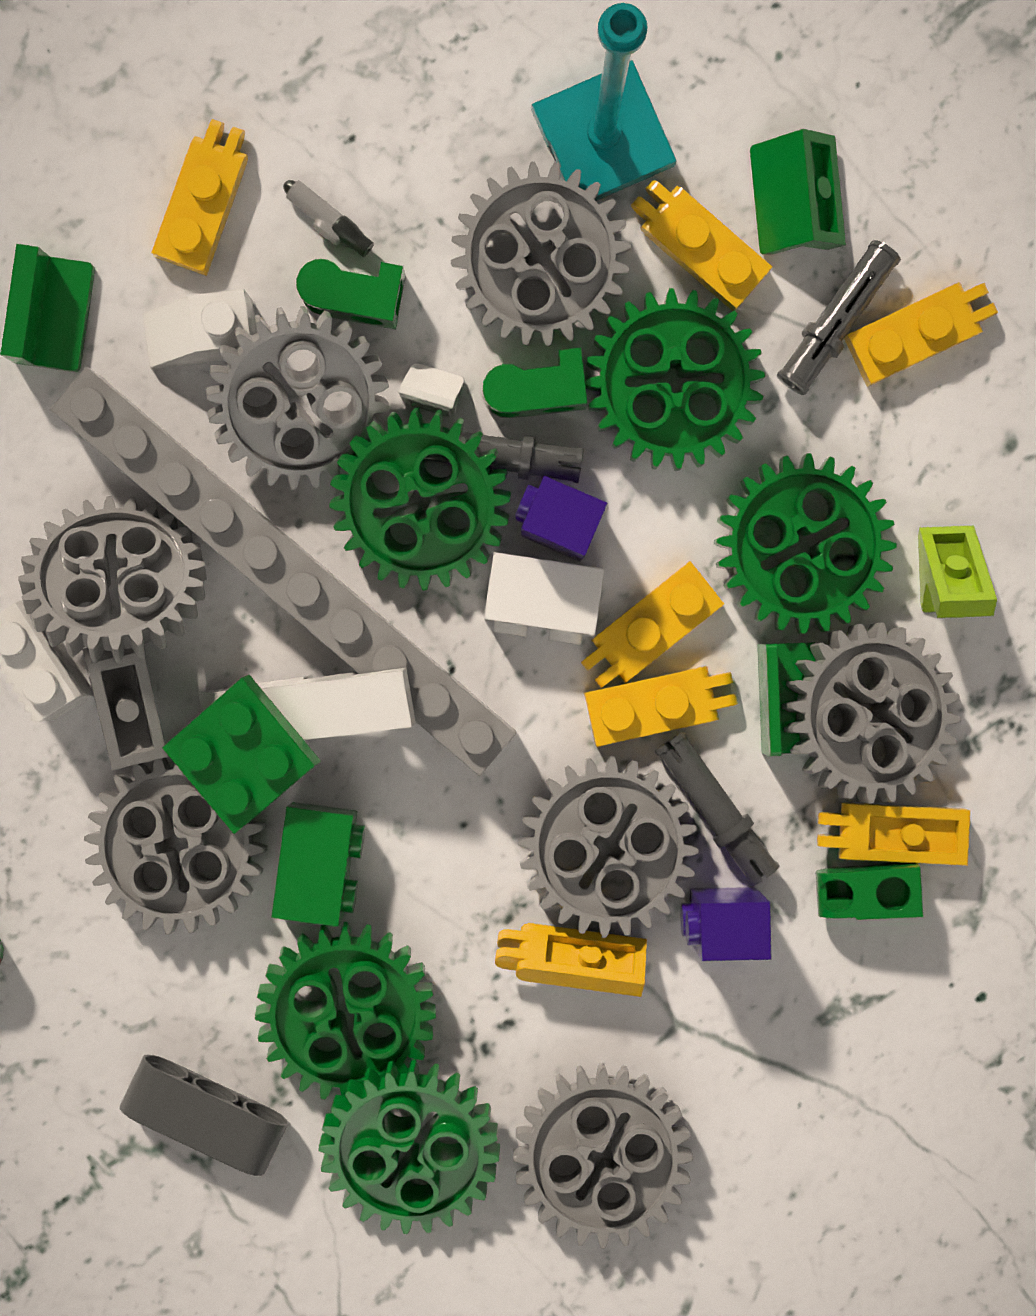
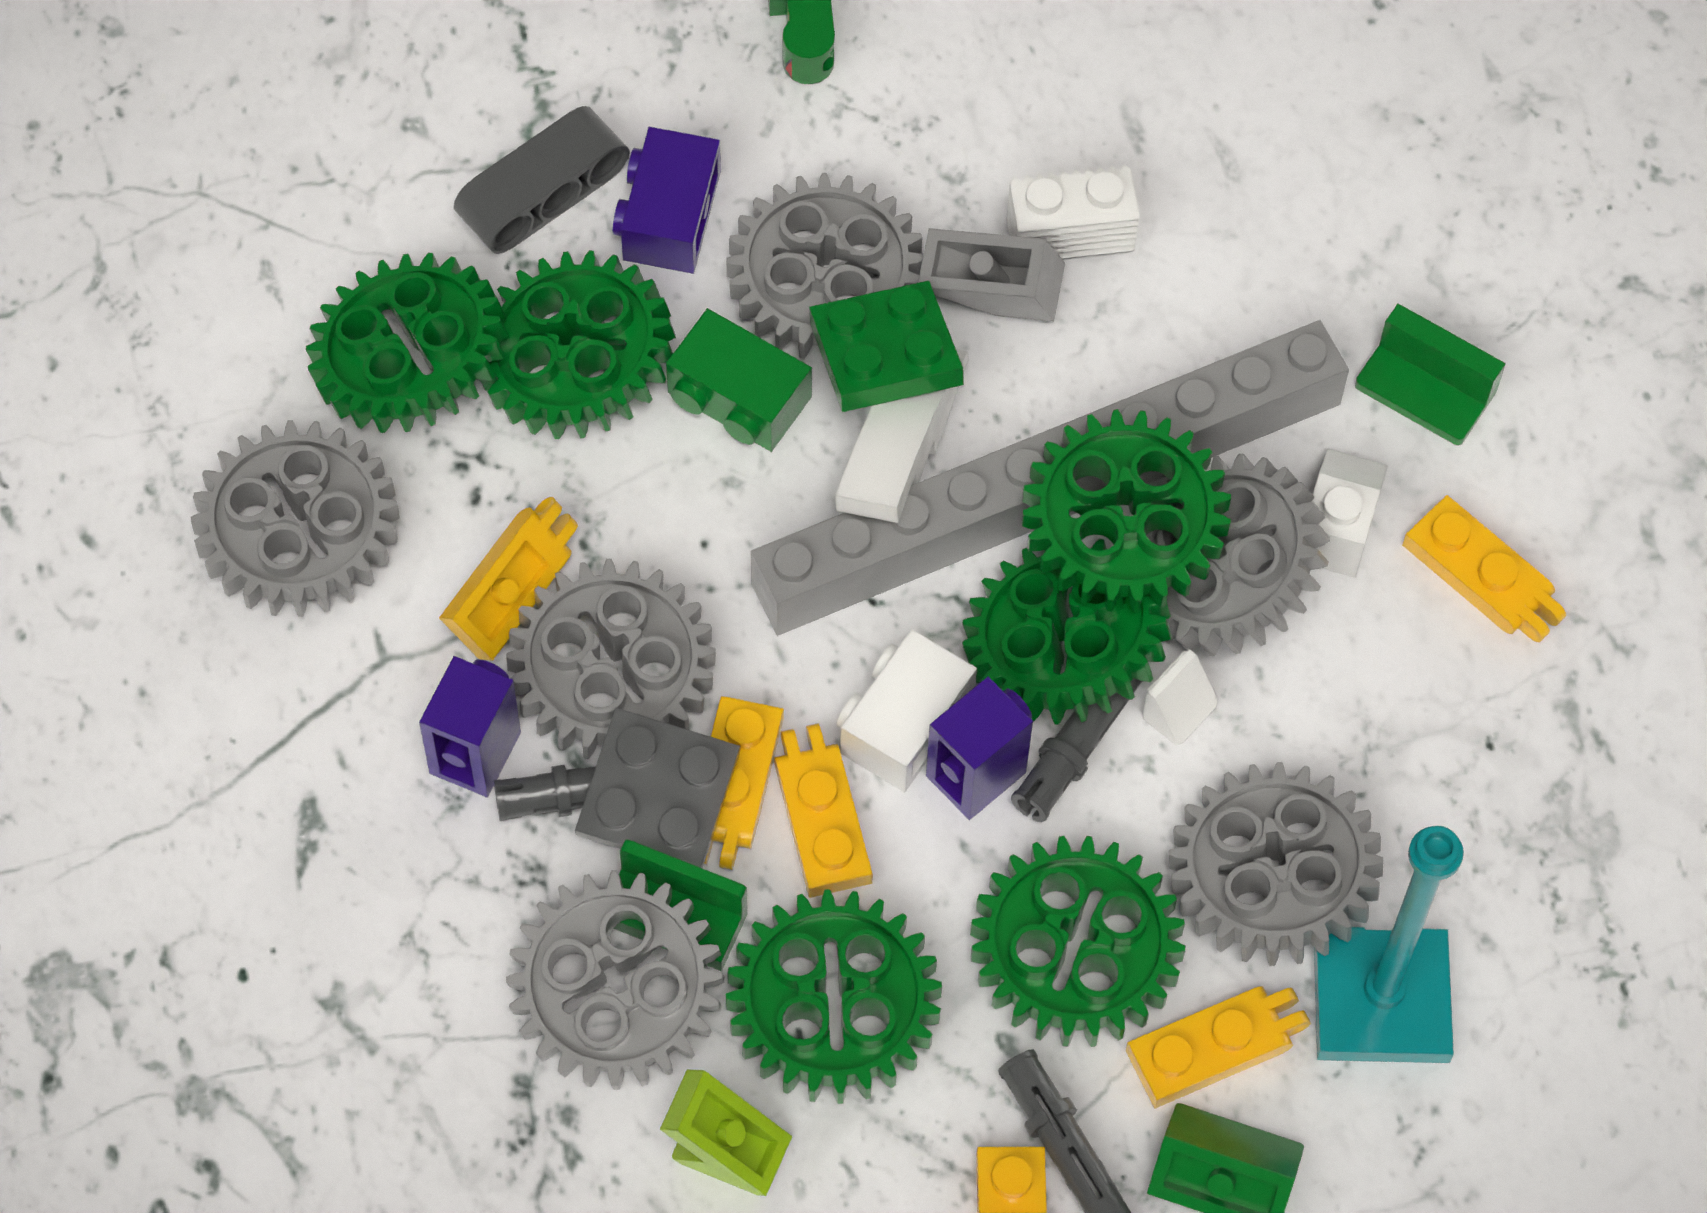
camera: 115 degrees right, 25 degrees down
(59, 582) = (1119, 306): light grey gear -> none
(173, 1002) = (668, 200): none -> dark purple brick
(267, 512) = (1133, 563): none -> green gear
(328, 221) = (1408, 679): light grey piece -> none
(351, 294) = (1323, 651): green leg -> none
(537, 391) = (1136, 783): green leg -> none
(709, 753) = (657, 787): none -> dark grey plate
(870, 891) = (421, 901): green leg -> none
(898, 833) = (469, 956): yellow hinge -> none

